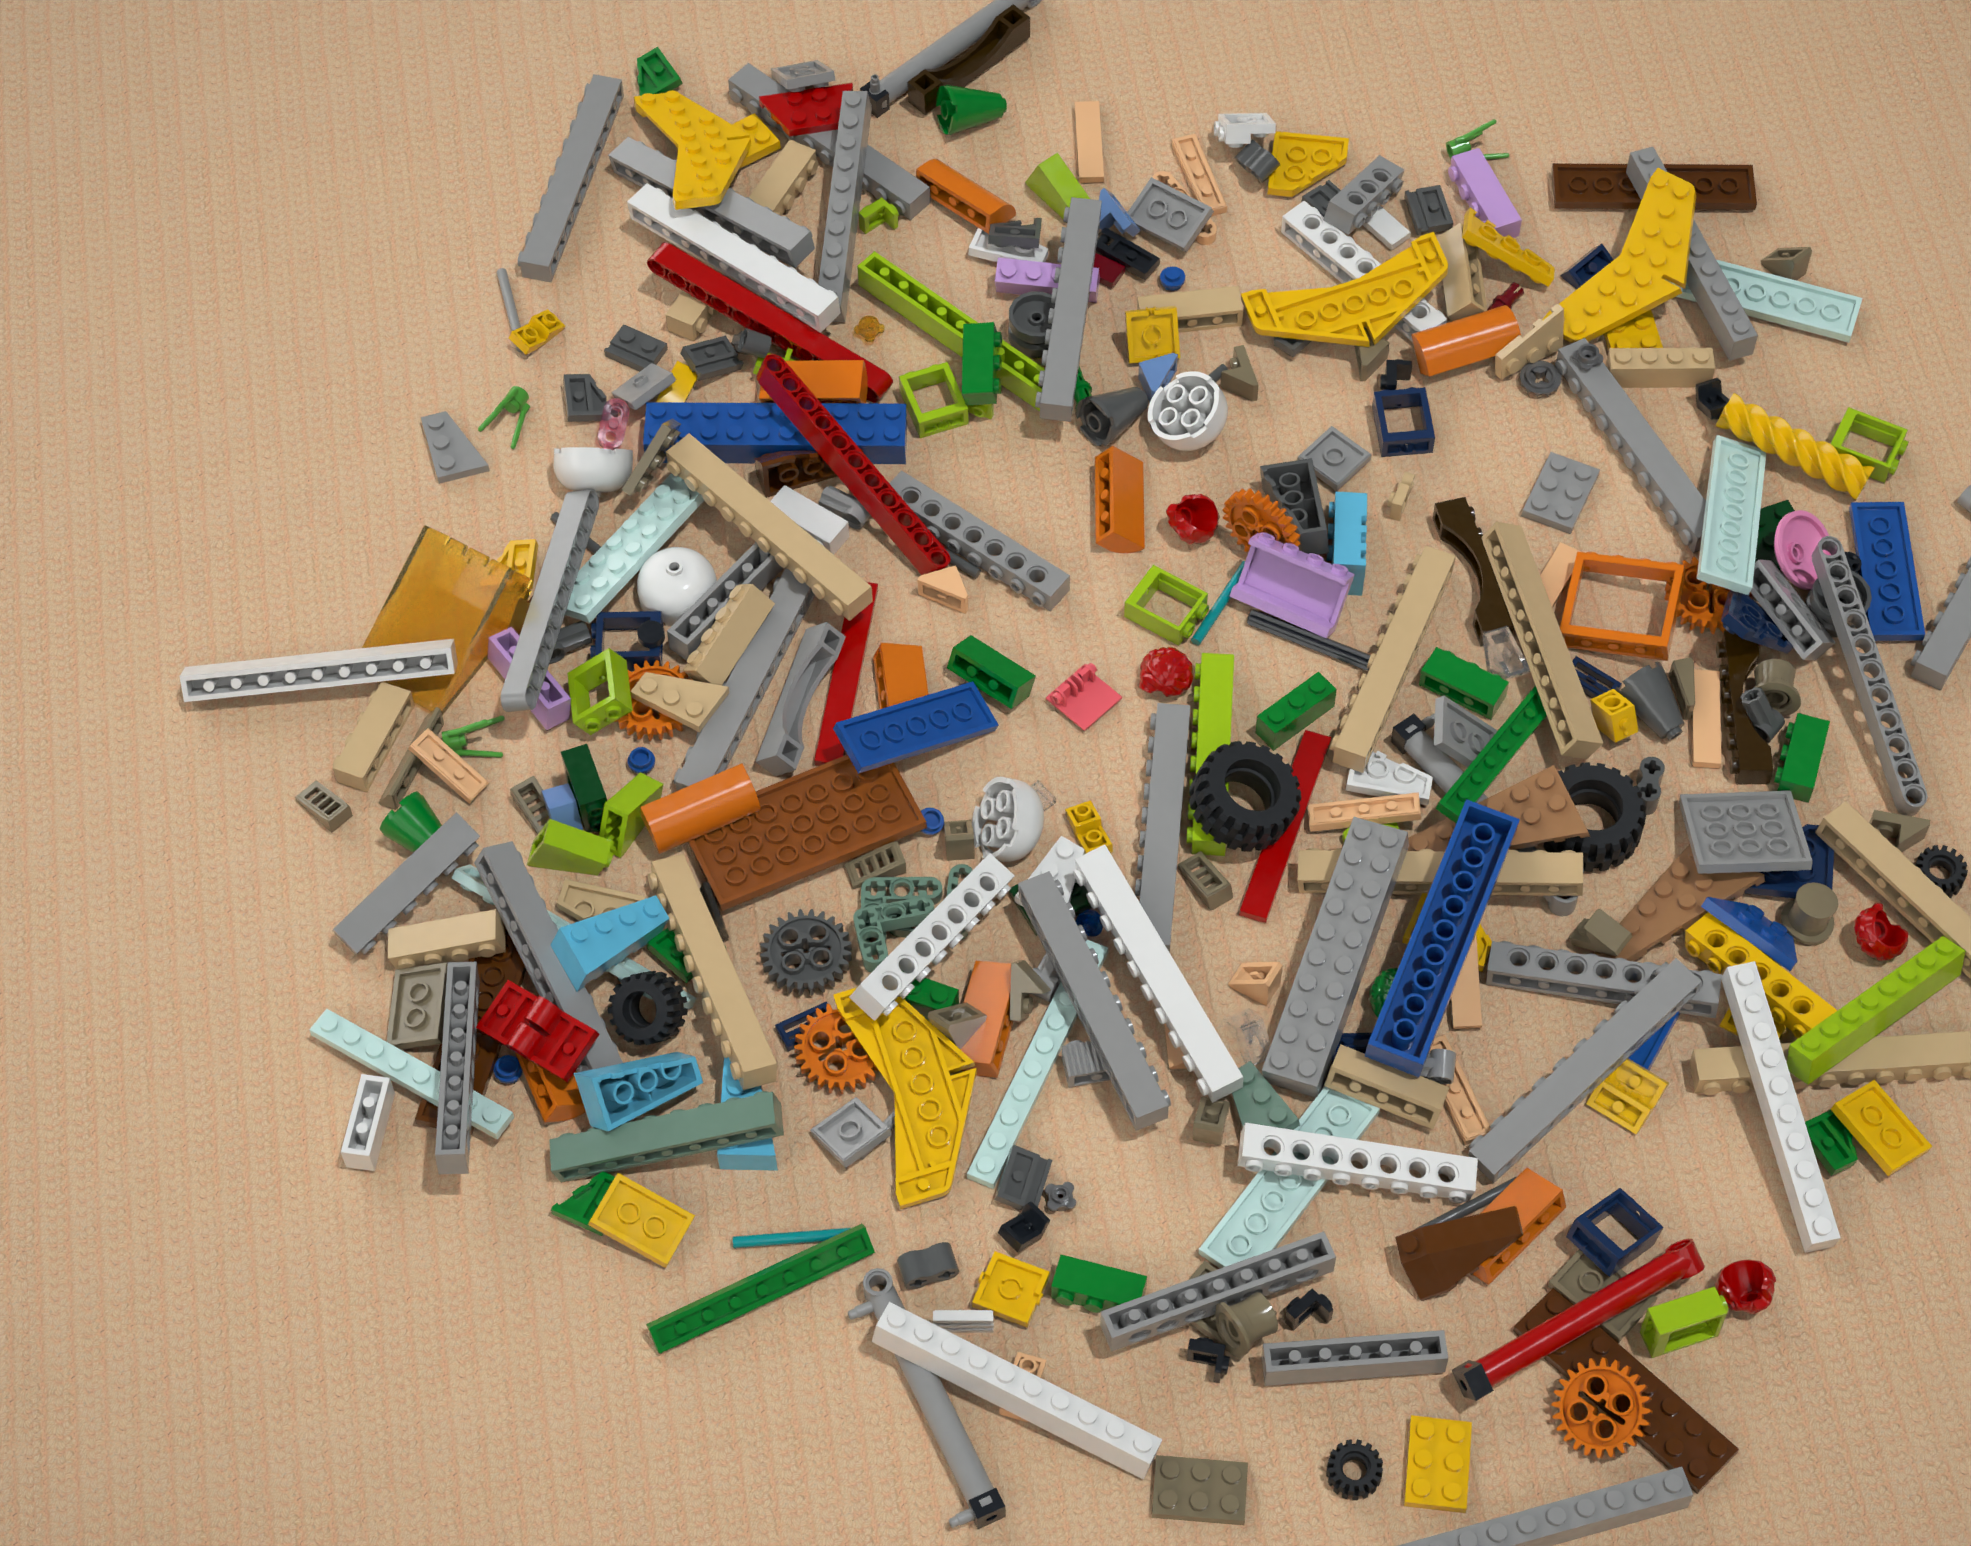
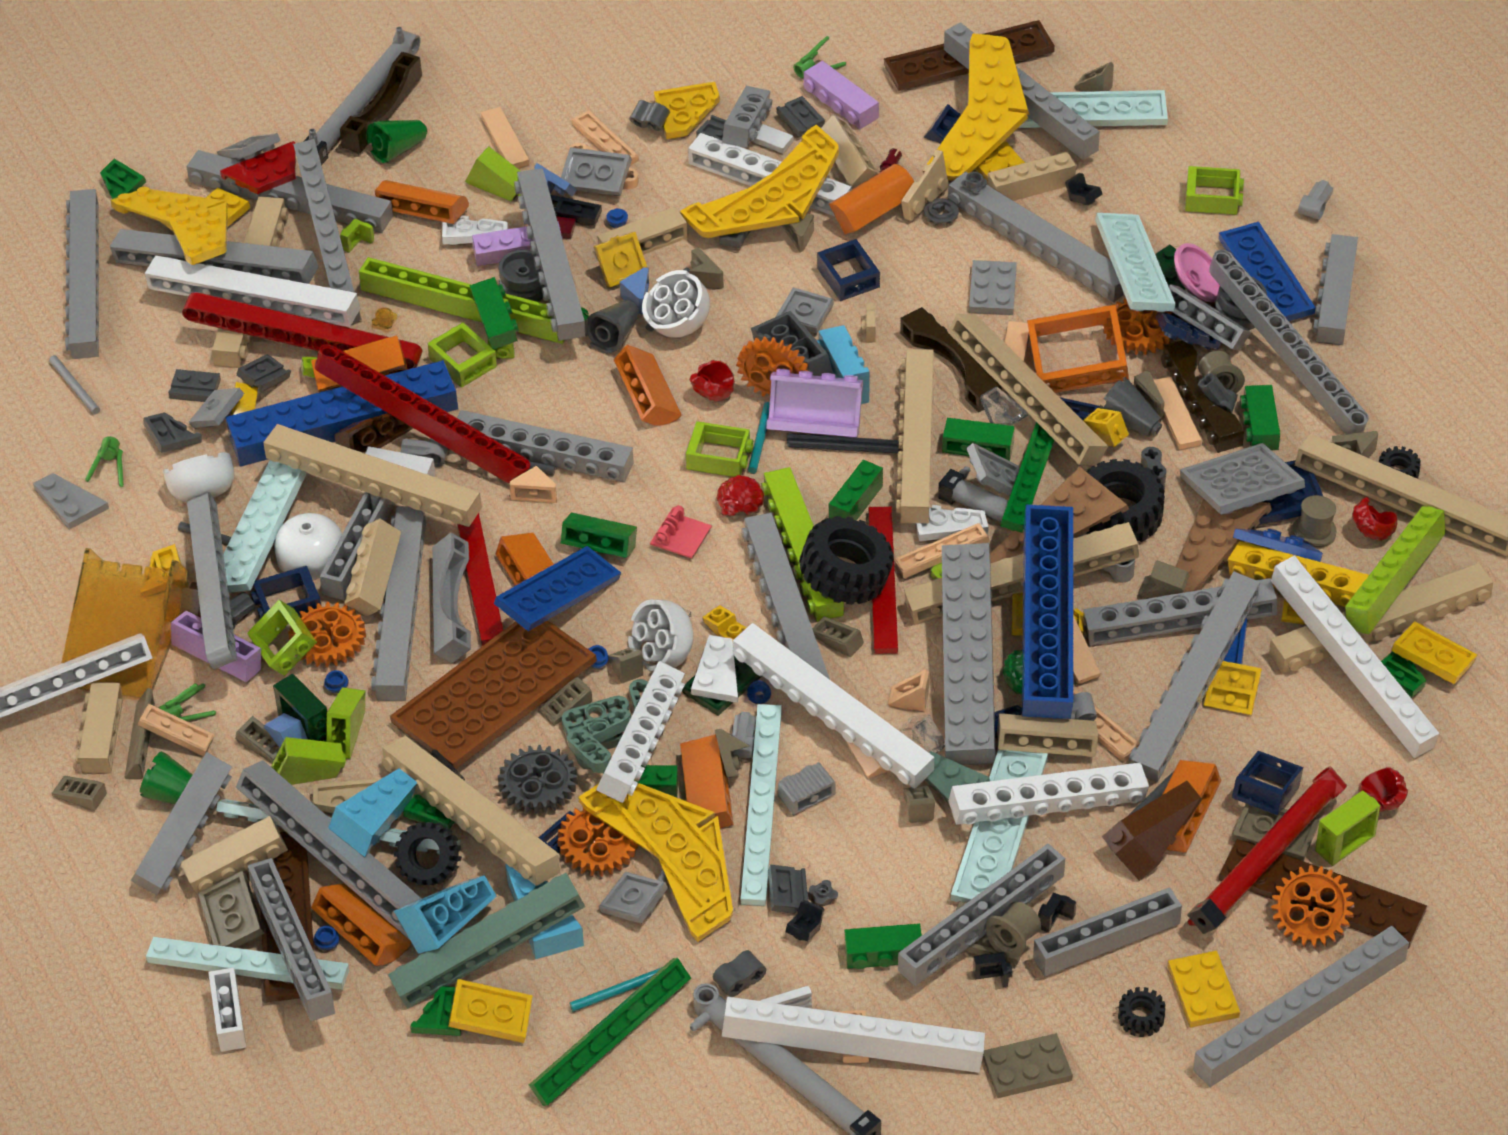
camera: 20 degrees left, 10 degrees down
(537, 332) = (105, 393): yellow slope -> none
(537, 1030) = (346, 892): red plate -> none
(613, 425) = (201, 444): clear pink plate -> none
(651, 634) = (307, 583): black tile -> none
(653, 457) = (252, 453): dark tan plate -> none
(680, 698) = (352, 623): tan wing -> none
(700, 808) = (405, 697): orange brick -> none
(752, 343) = (293, 351): dark grey piece -> none
(957, 1022) = (688, 788): dark tan slope -> none
(1011, 1289) = (814, 967): yellow plate -> none
(1014, 234) = (475, 217): dark grey wing -> none
(1093, 1000) = (791, 739): light grey brick -> none
(1237, 128) = (626, 95): white plate -> none
(1394, 371) = (827, 236): black bracket -> none
(1506, 249) = (876, 125): yellow wing -> none
(1794, 446) = (1161, 204): yellow piece -> none

